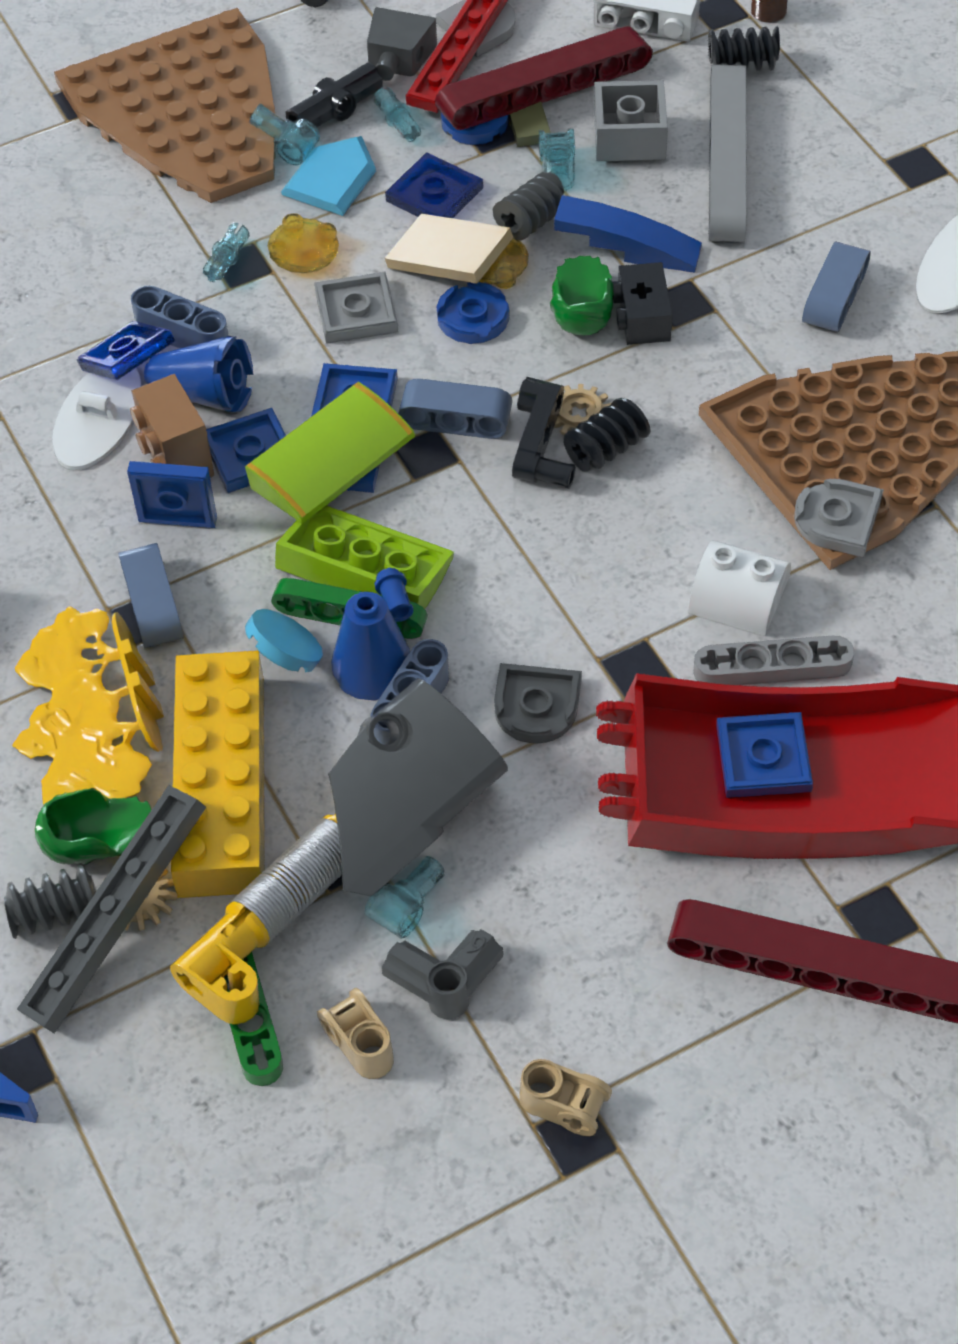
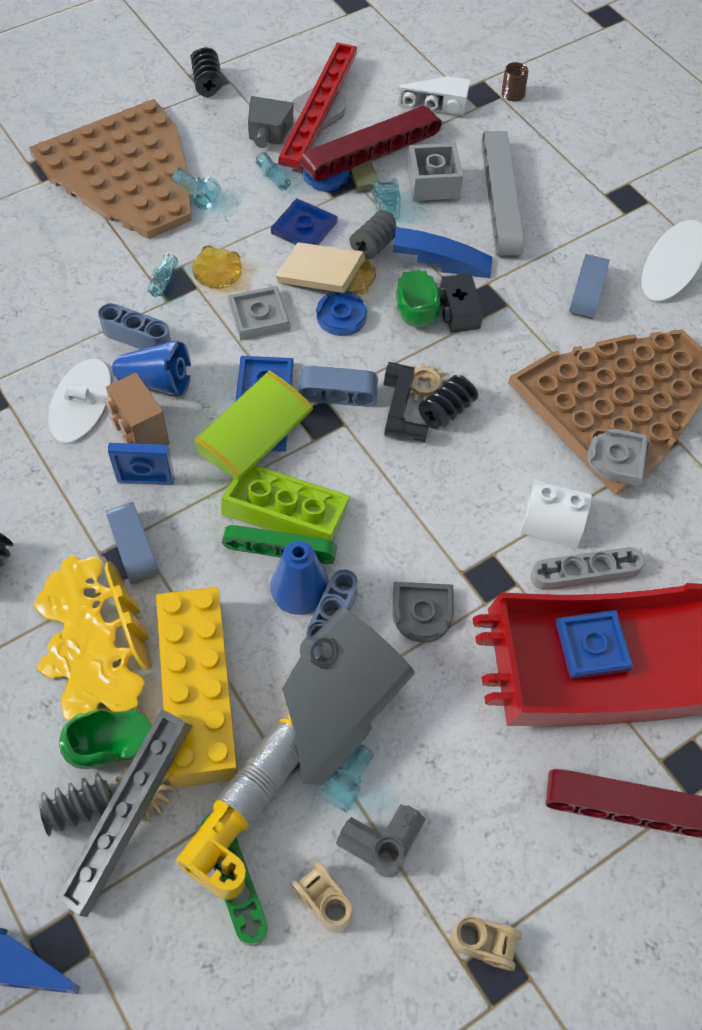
camera: 10 degrees left, 5 degrees up
(125, 350) = (97, 352): clear blue tile -> none
(239, 443) = (188, 420): blue tile -> none
(284, 640) = (235, 575): medium azure tile -> none
(332, 175) = (232, 216): medium azure tile -> none
(337, 98) = (230, 160): black piece -> none
(391, 585) = (311, 529): blue pin -> none
(744, 50) = (503, 118): black piece -> none

